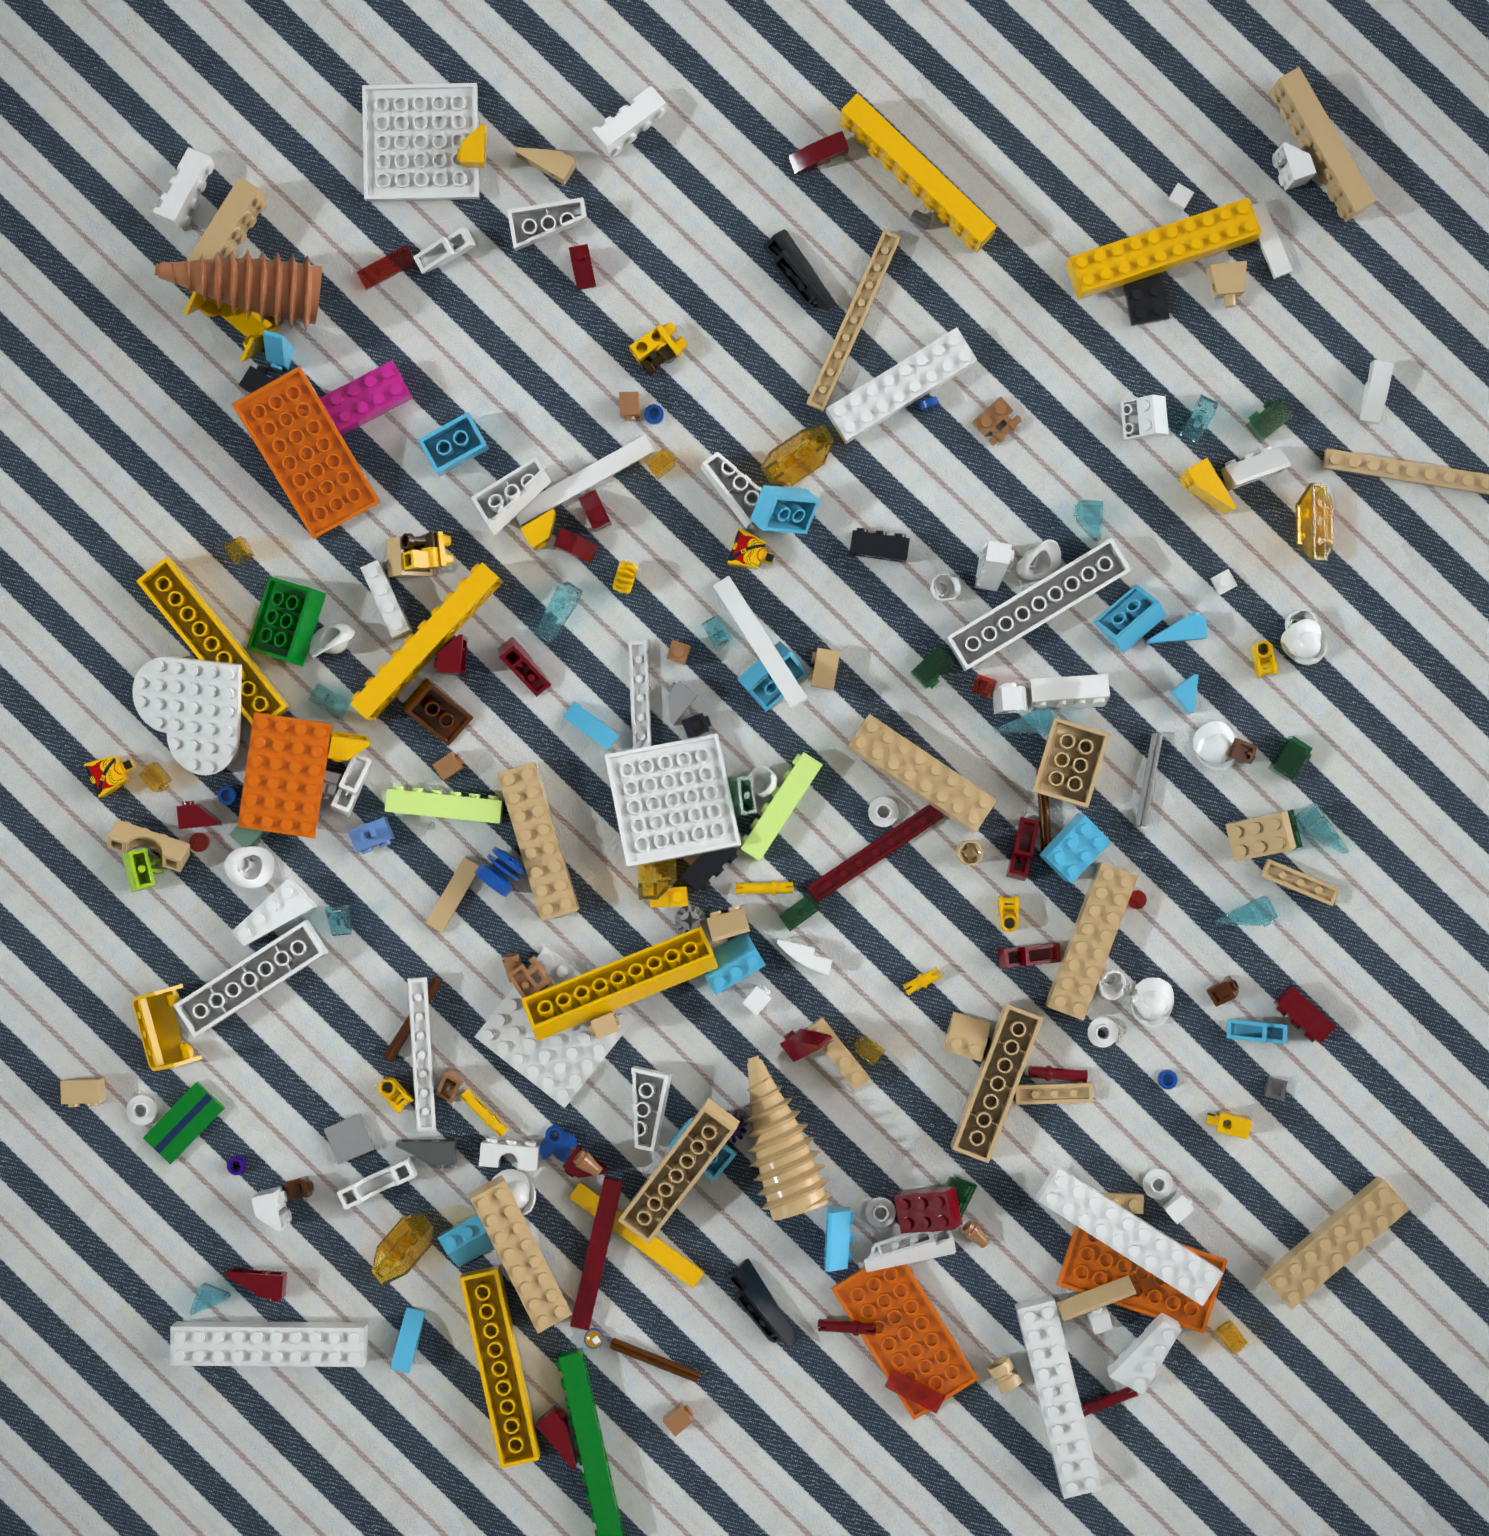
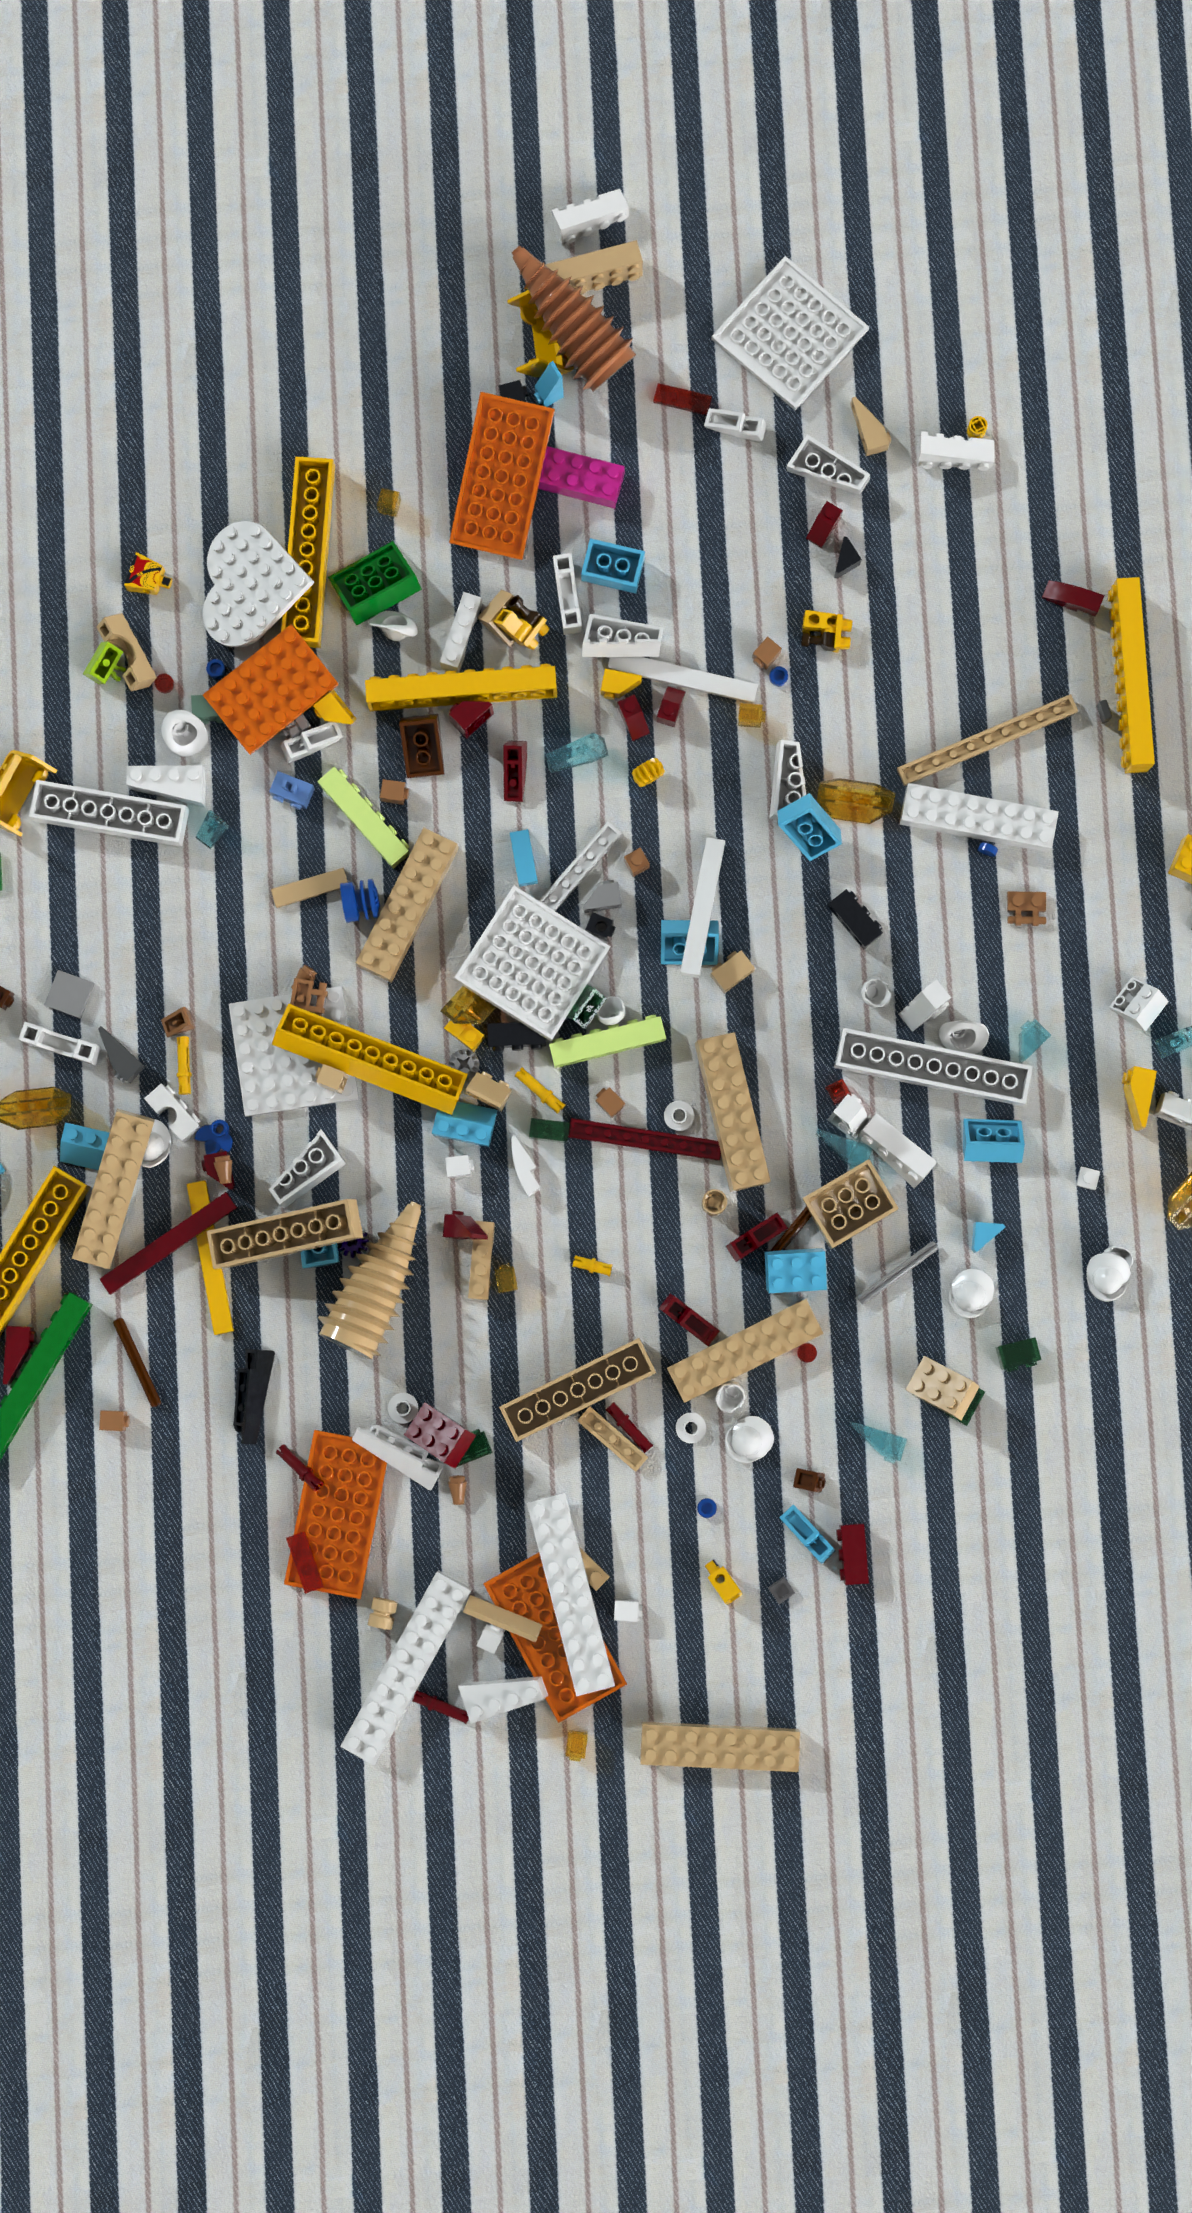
camera: 45 degrees right, 5 degrees down
(155, 777) = (177, 608): clear yellow brick -> none
(194, 816) = (178, 661): dark red slope -> none
(329, 700) = (352, 667): clear light blue slope -> none
(396, 1094) = (132, 996): yellow piece -> none
(405, 1031) = (196, 950): reddish brown axle -> none
(421, 1054) = (179, 980): white tile -> none
(439, 497) = (567, 593): none -> white arch
(474, 149) = (823, 371): yellow slope -> none
(593, 1338) = (107, 1304): tile -> none
(623, 277) = (847, 559): none -> black slope
(629, 92) = (975, 431): none -> yellow wheel
(717, 632) = (678, 874): clear light blue slope -> none
(749, 551) = (755, 836): torso -> none
(798, 271) = (979, 668): black wedge -> none
(823, 849) = (609, 1102): none -> medium nougat brick
(838, 1238) = (354, 1396): medium azure slope -> none
(933, 666) = (812, 1043): clear green brick -> none
(966, 1036) = (587, 1336): tan slope -> none
(1008, 911) = (703, 1273): yellow piece -> none
(1148, 1181) = (627, 1569): white piece -> none
(1186, 629) = (1026, 1186): medium azure slope -> none
(1243, 751) = (987, 1314): reddish brown bracket -> none
(1265, 660) = (1065, 1263): yellow piece -> none
(1299, 882) = (941, 1452): tan plate -> none
(1315, 824) = (992, 1423): clear light blue slope -> none

